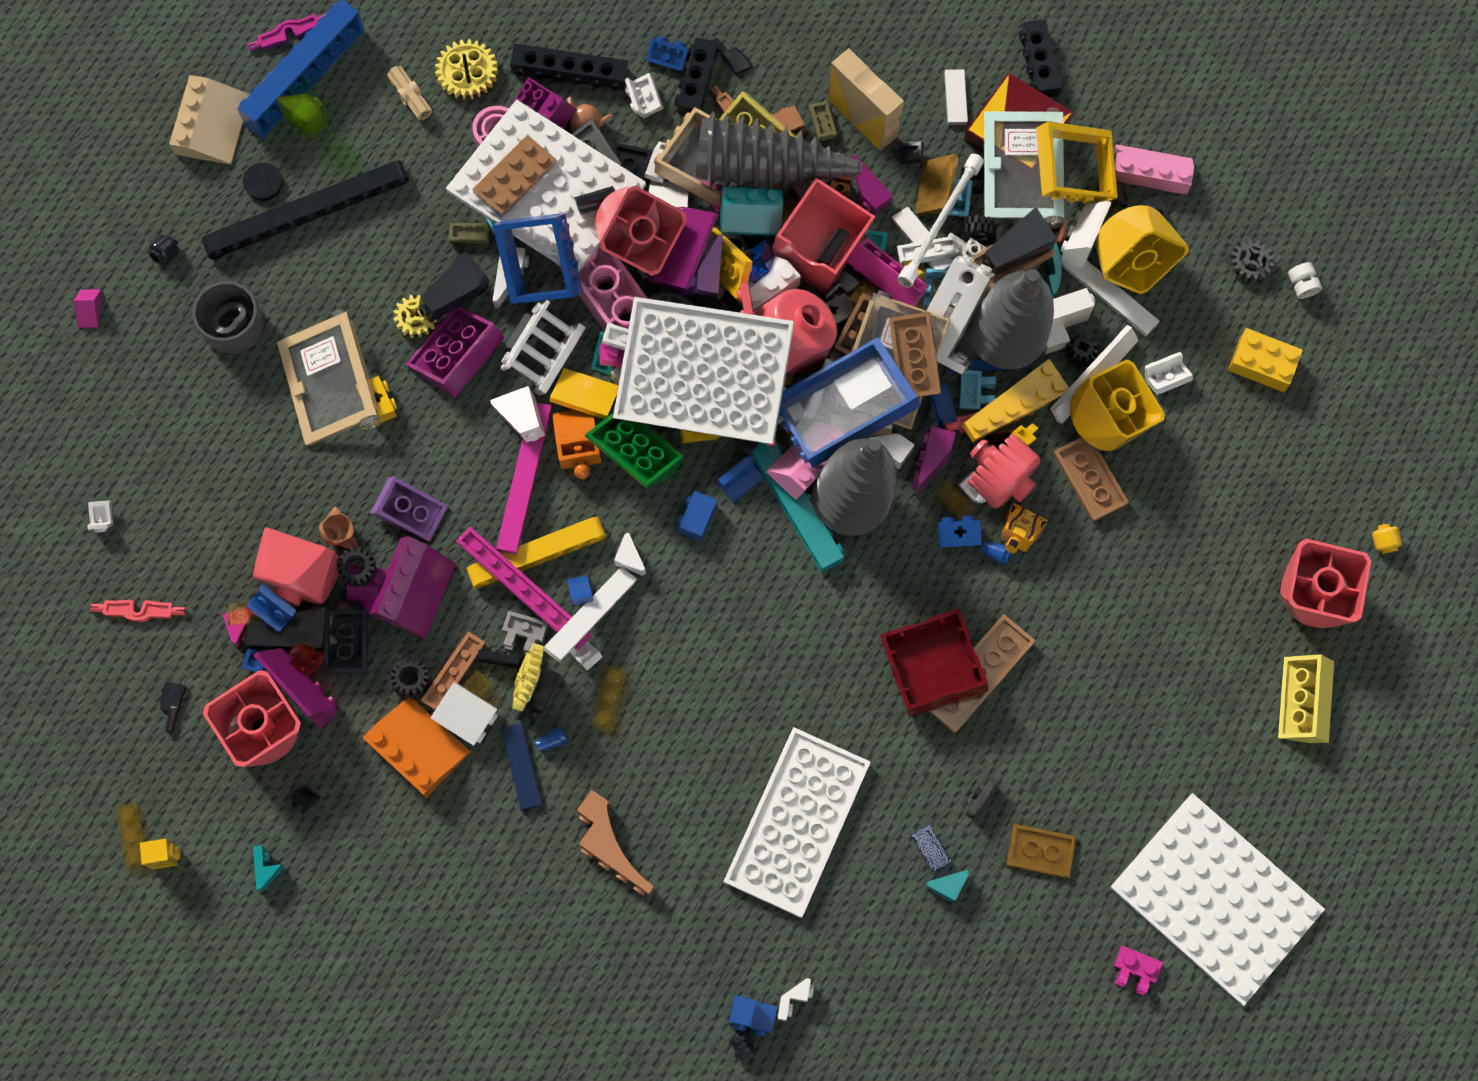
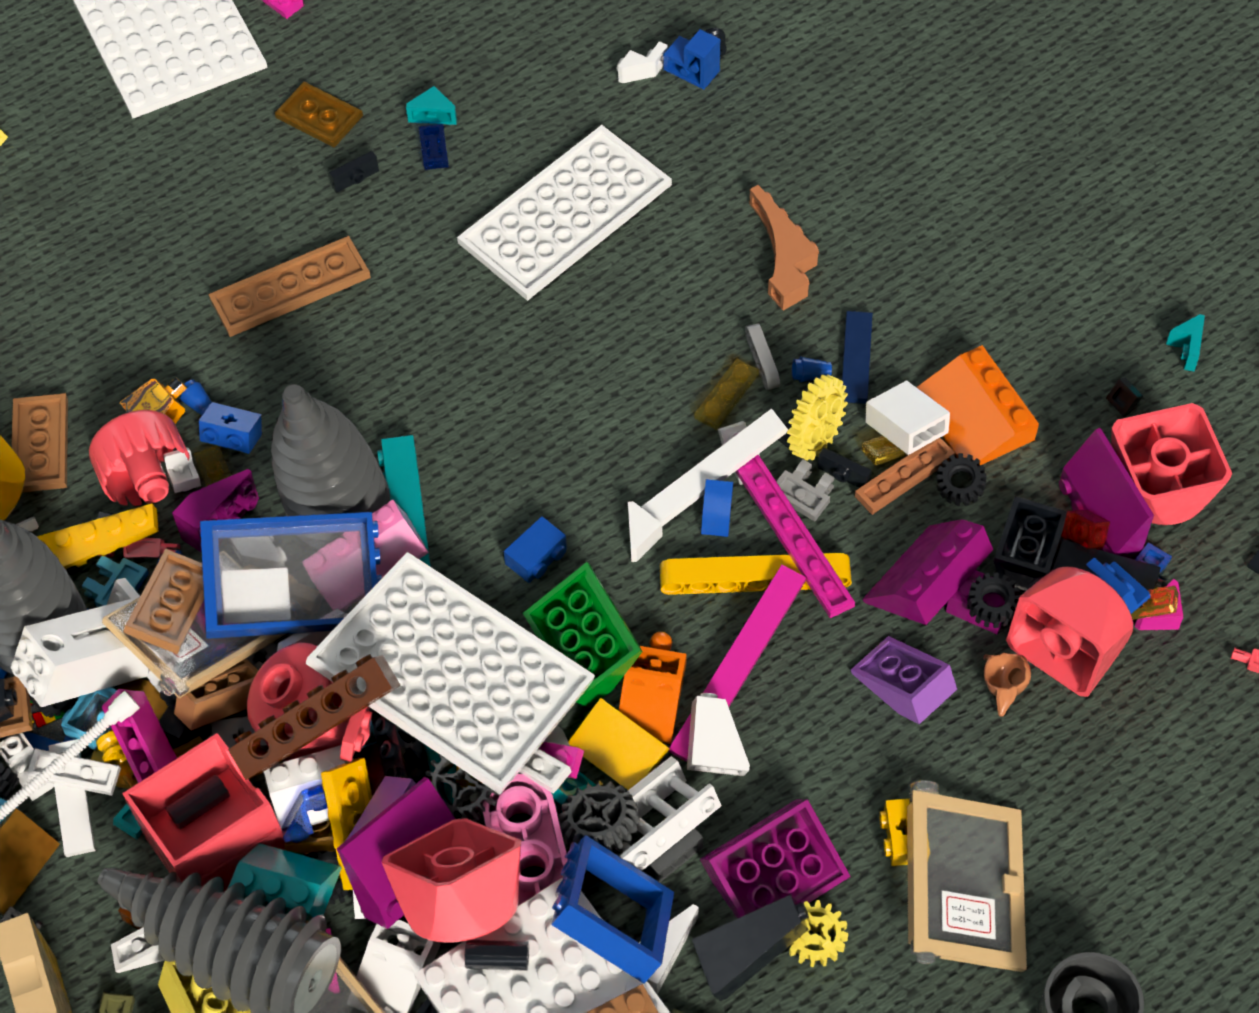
camera: 155 degrees left, 15 degrees down
(567, 320) = (607, 806): none -> dark grey gear
(591, 735) = (762, 356): none -> light grey beam
(740, 479) = (471, 576): blue panel -> none
(771, 291) = (379, 682): none -> reddish brown brick
(871, 191) = (100, 905): magenta slope -> none
(934, 663) = (335, 299): dark red tile -> none
(1026, 435) = (91, 502): yellow plate -> none

